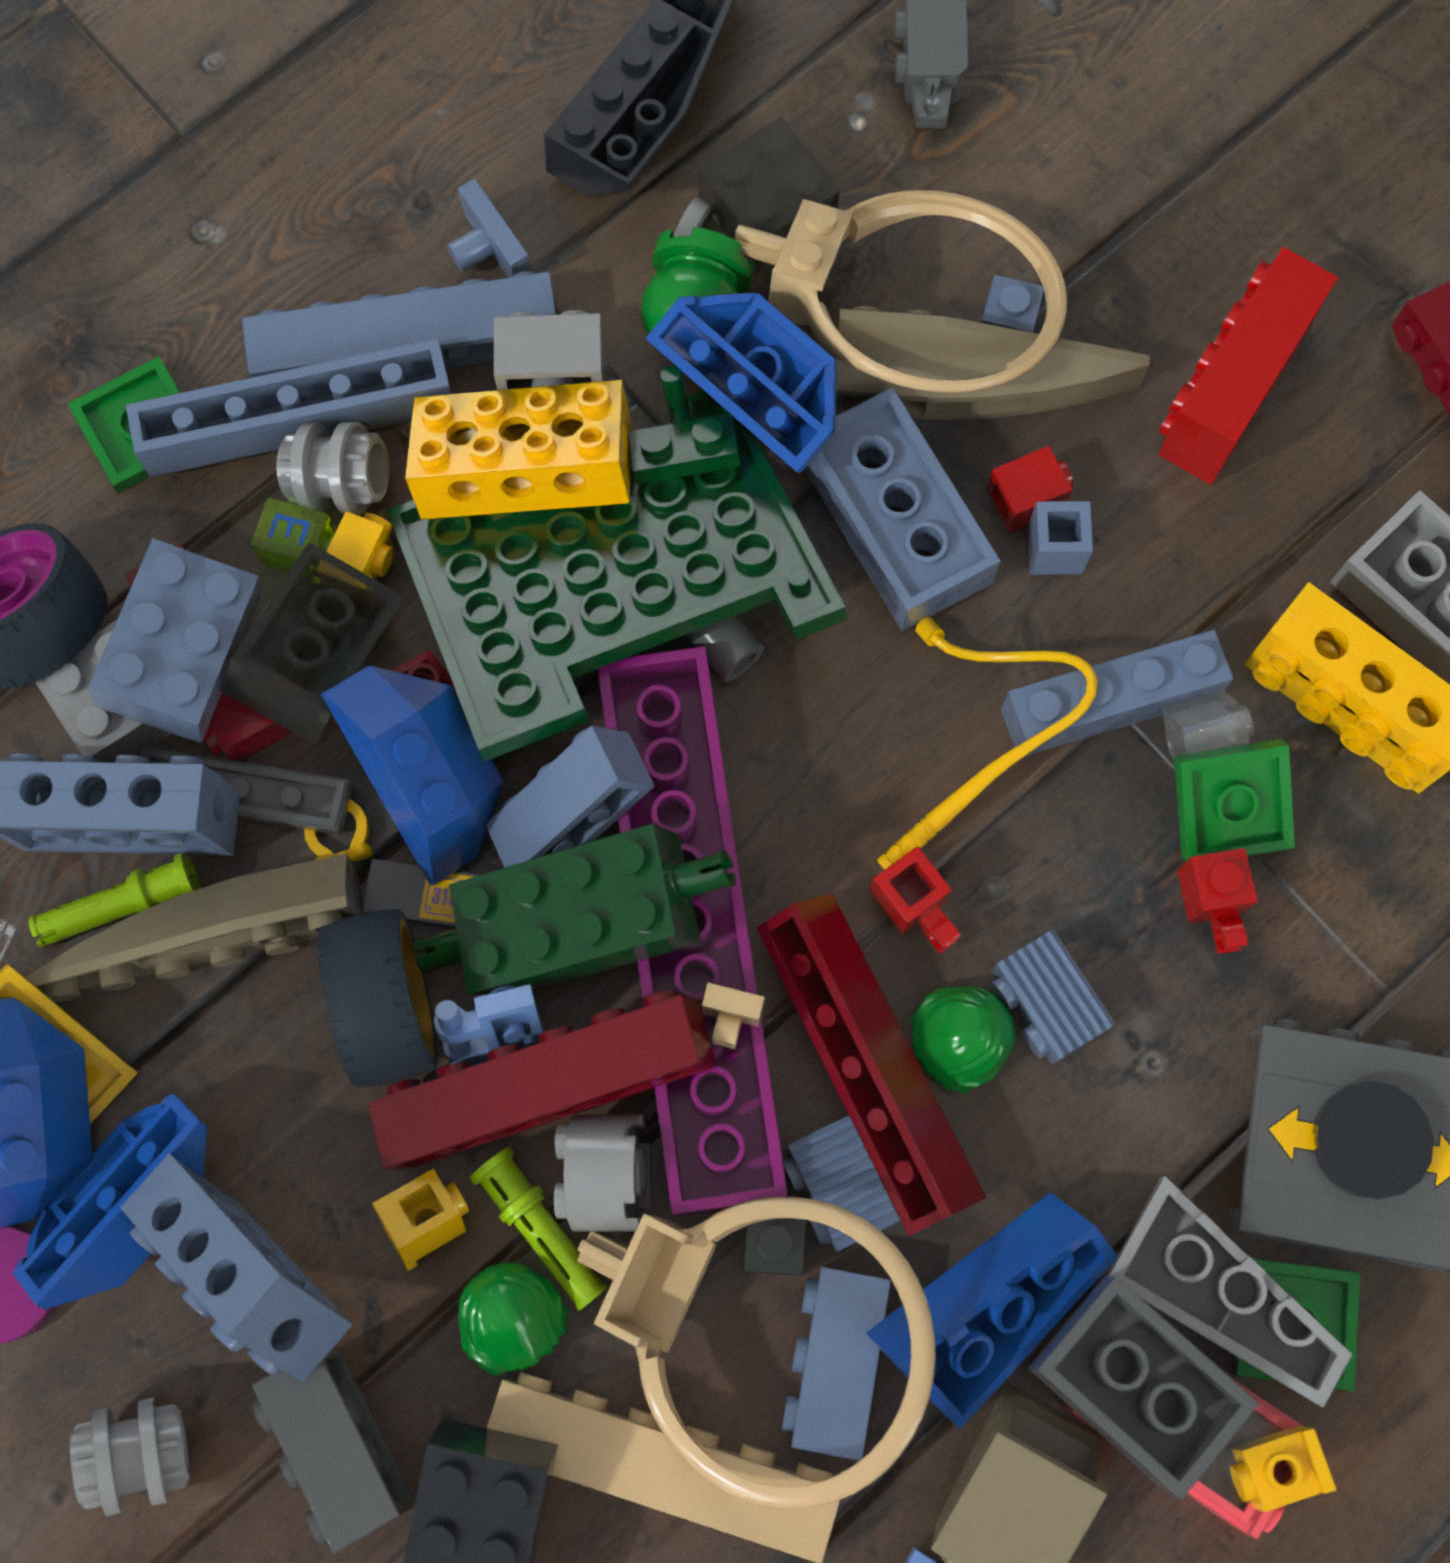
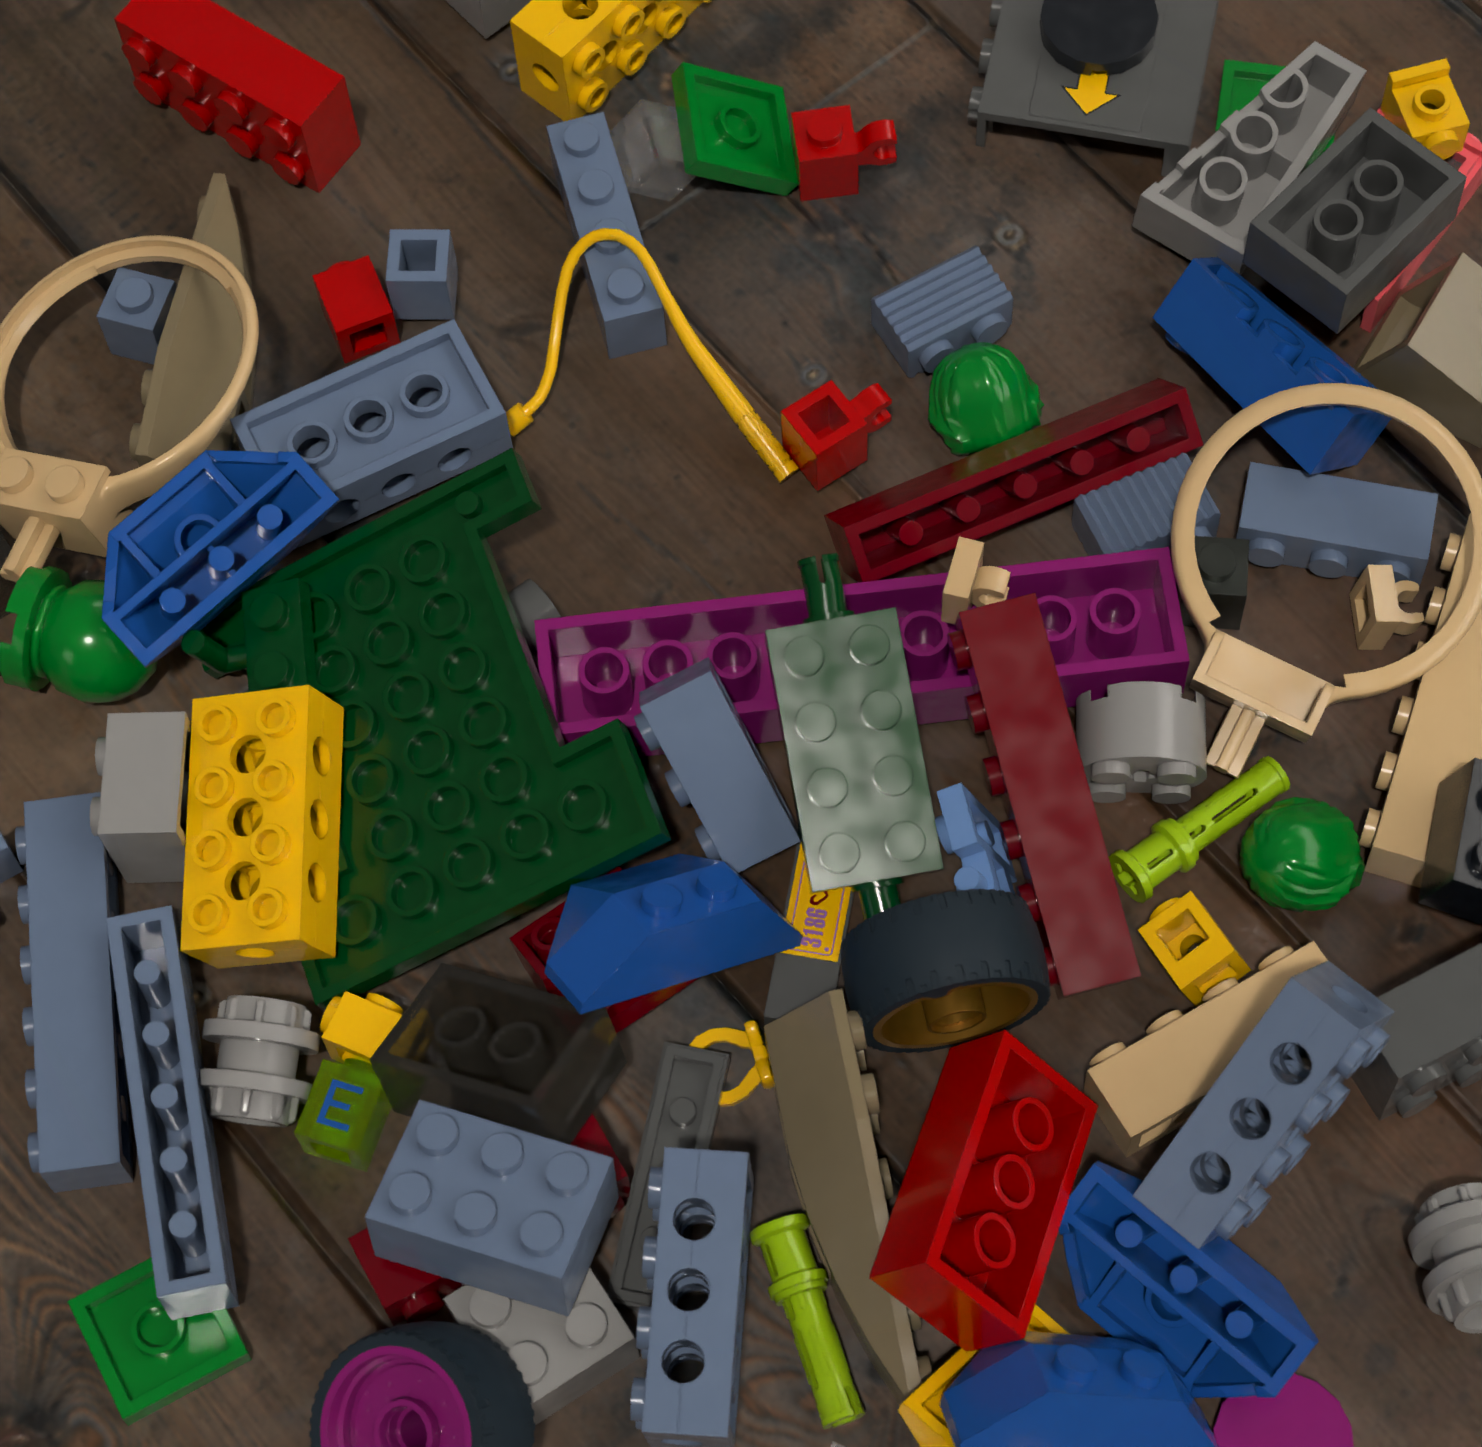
camera: 85 degrees left, 10 degrees down
(180, 1031) = (985, 1192): none -> red brick
(330, 1237) = (1167, 1074): none -> tan brick
(755, 1399) = (1377, 610): none -> tan tile

